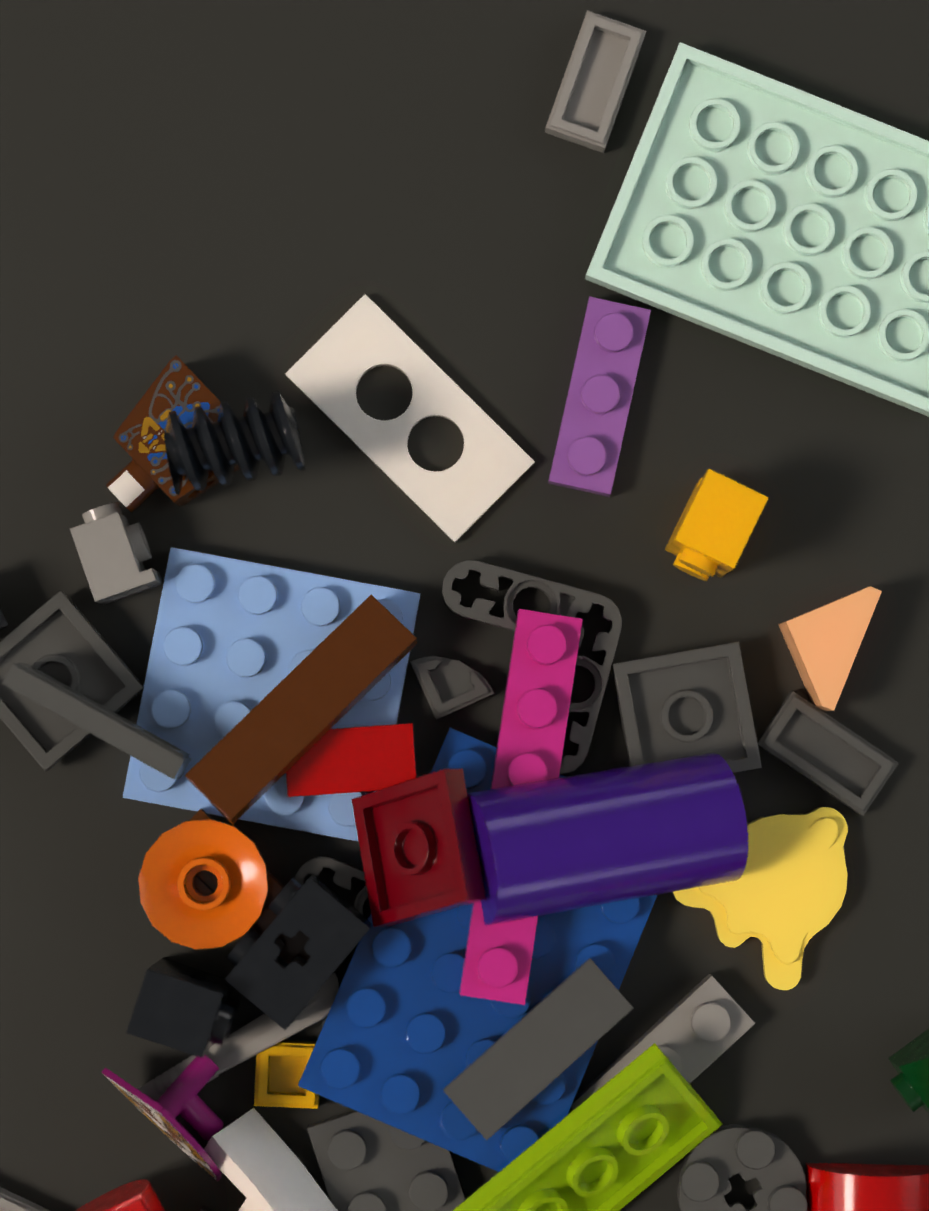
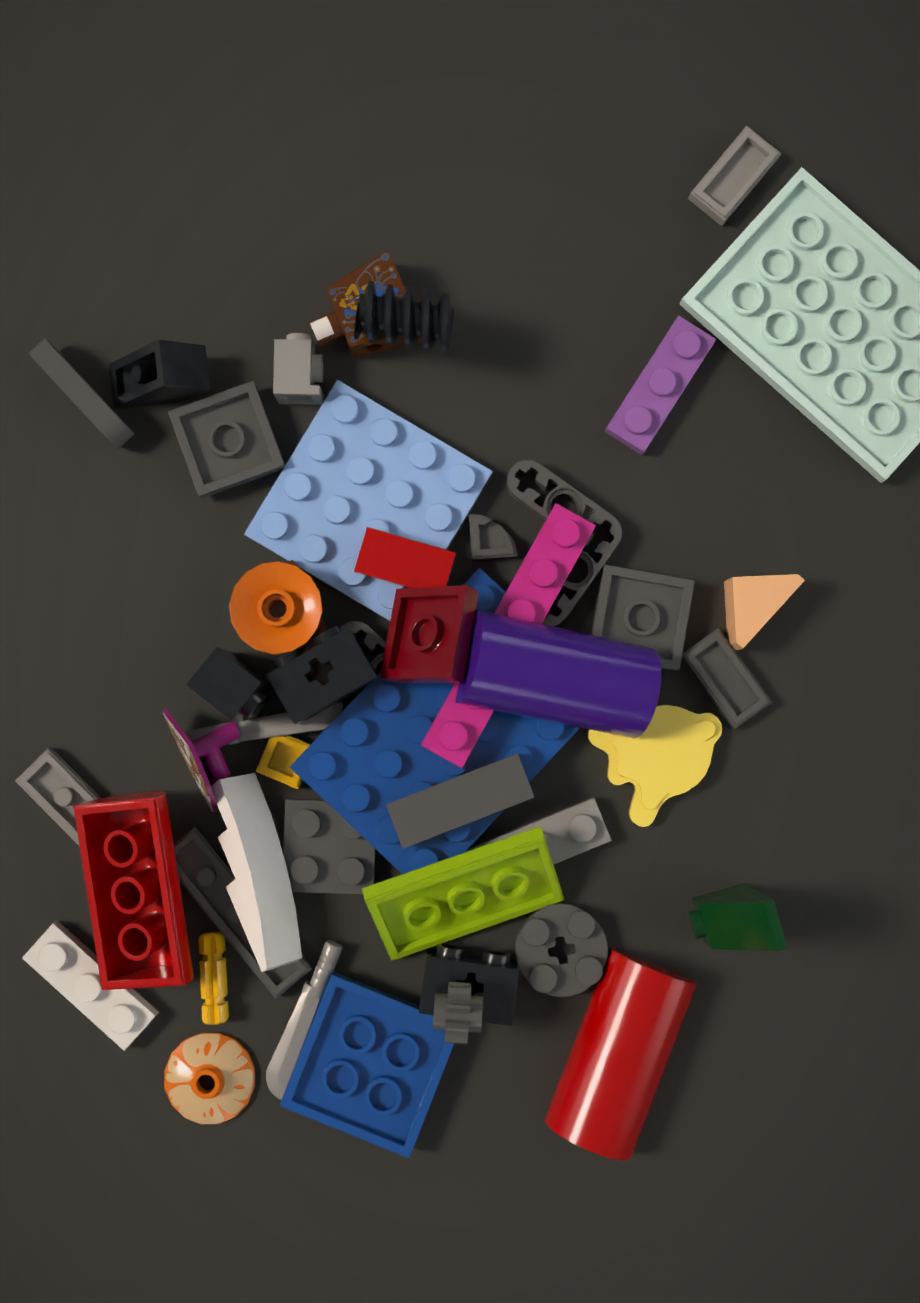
camera: 20 degrees right, 0 degrees up
(97, 720) = (245, 472): dark grey tile -> none
(301, 709) = (384, 515): reddish brown tile -> none
(370, 339) = (521, 292): white piece -> none
(715, 526) = (708, 494): yellow brick -> none

